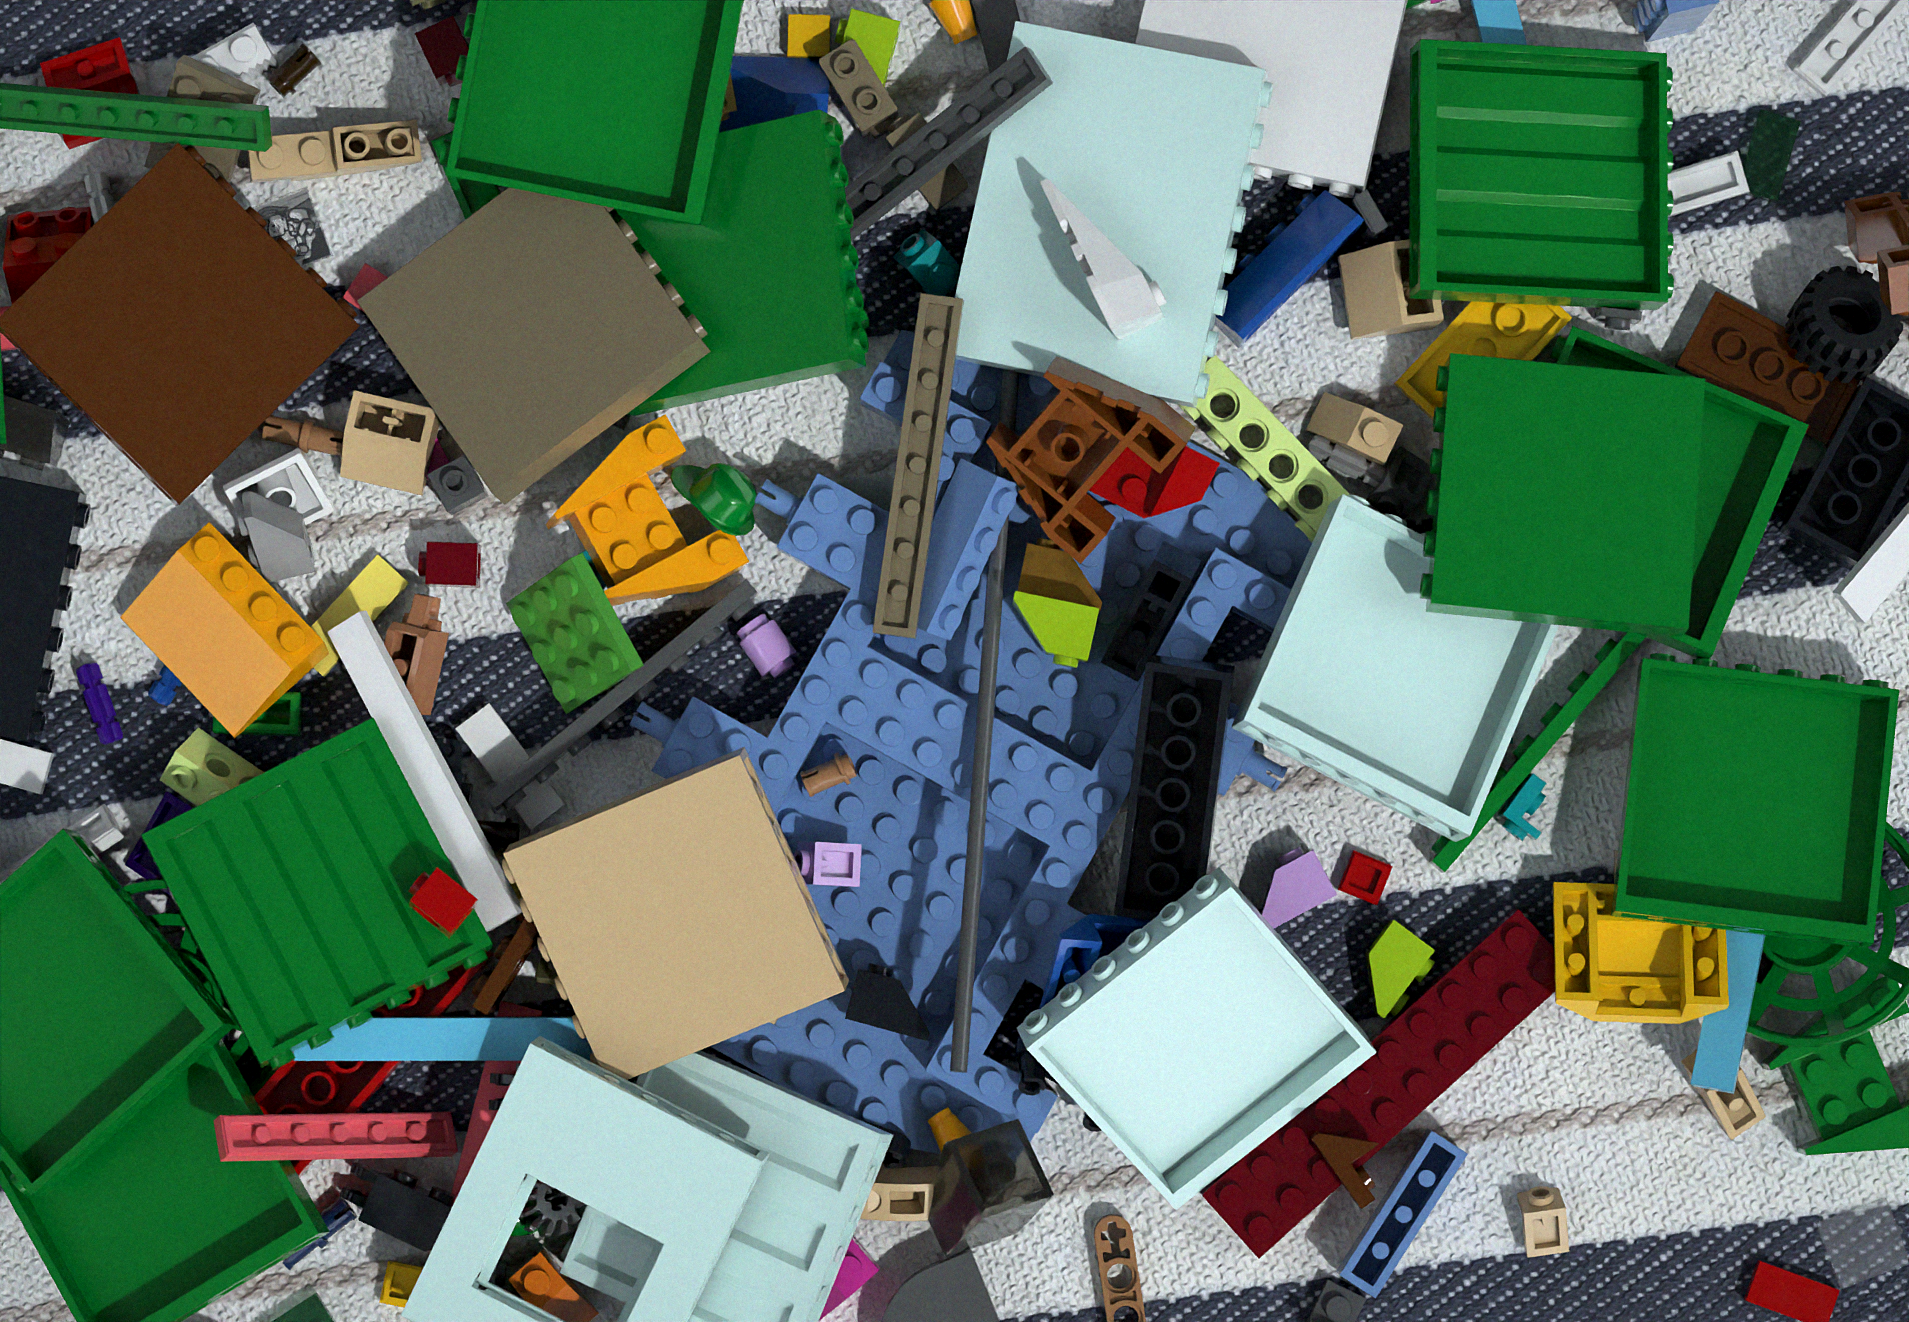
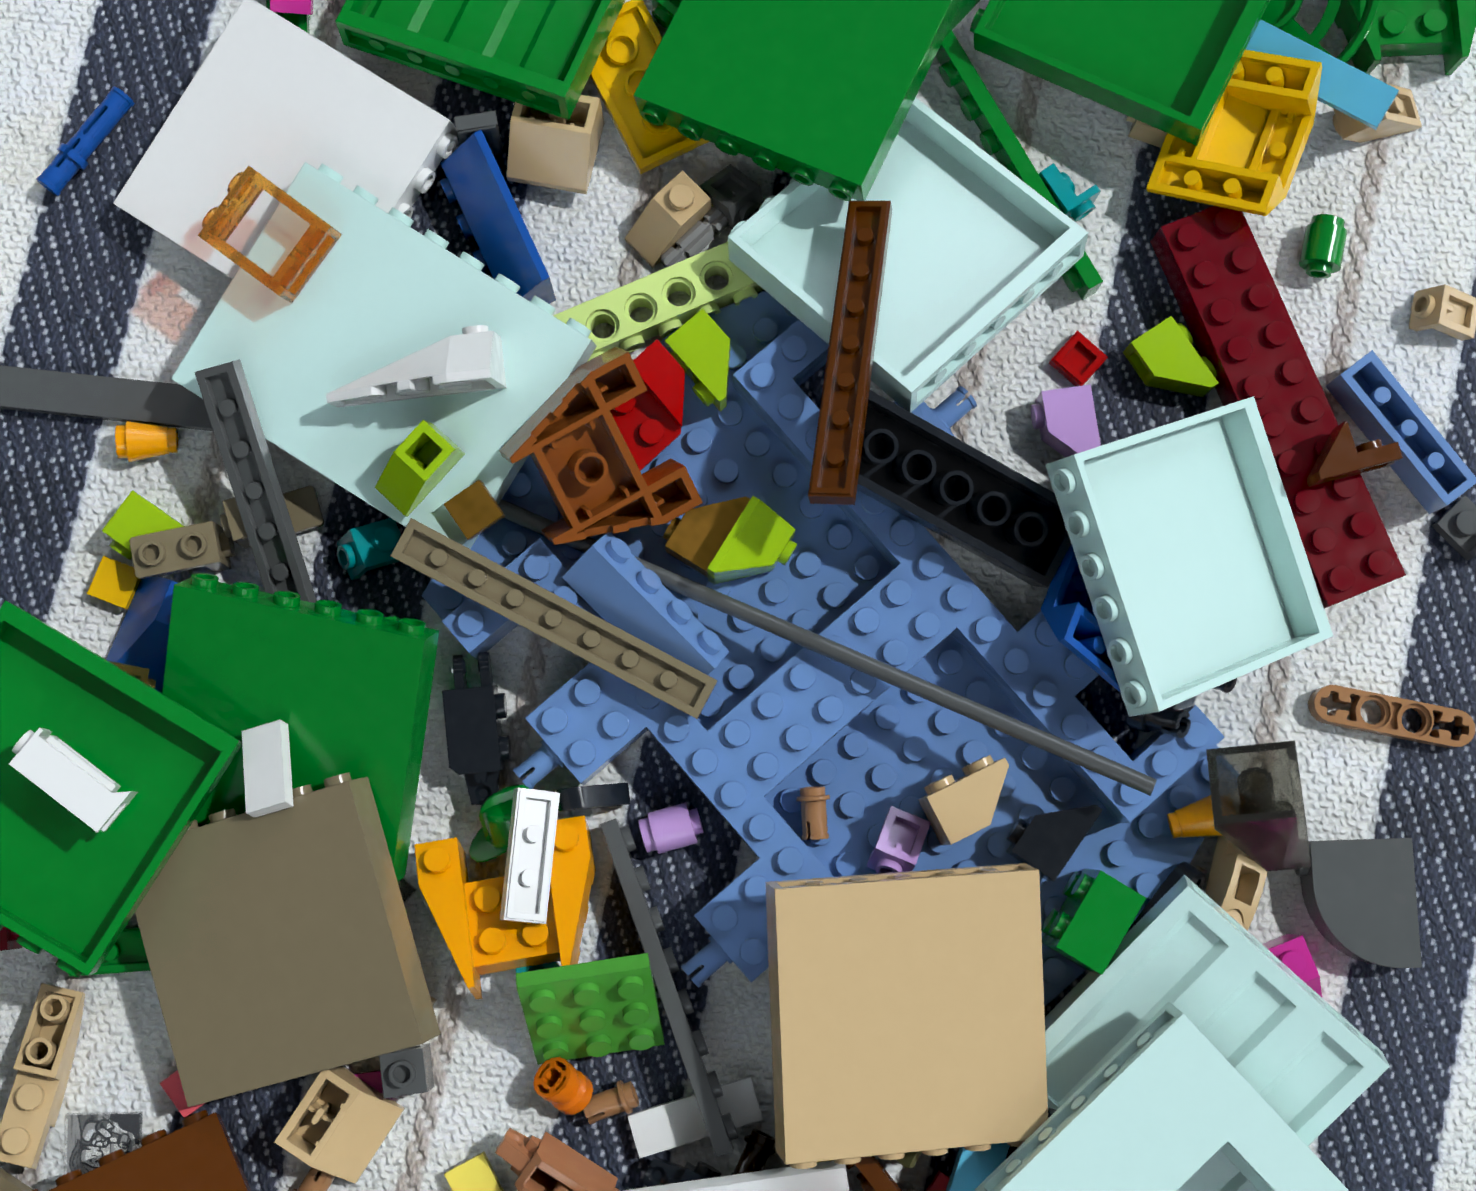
camera: 75 degrees left, 5 degrees down
(451, 564) = (480, 1105): dark red brick -> none
(495, 633) = (563, 1086): none -> orange wheel
(496, 683) = (612, 1102): none -> medium nougat pin
(611, 92) = (70, 779): none -> white window
(684, 258) = (267, 768): none -> white tile
(692, 525) = (529, 856): none -> white tile
(769, 563) = (593, 797): none -> black beam
(792, 428) = (475, 729): none -> black hinge
(821, 1064) = (1091, 919): none -> green brick
(886, 910) = (964, 804): none -> tan slope
(993, 354) = (474, 510): none -> pearl gold tile
(1012, 288) = (417, 467): none -> lime slope
(1151, 611) = (765, 454): black slope -> none
(1169, 107) = (304, 257): none -> clear orange window
(1227, 515) = (705, 356): none -> lime slope
(1264, 649) = (850, 354): none -> reddish brown tile
(1565, 1078) = (1323, 246): none -> green brick

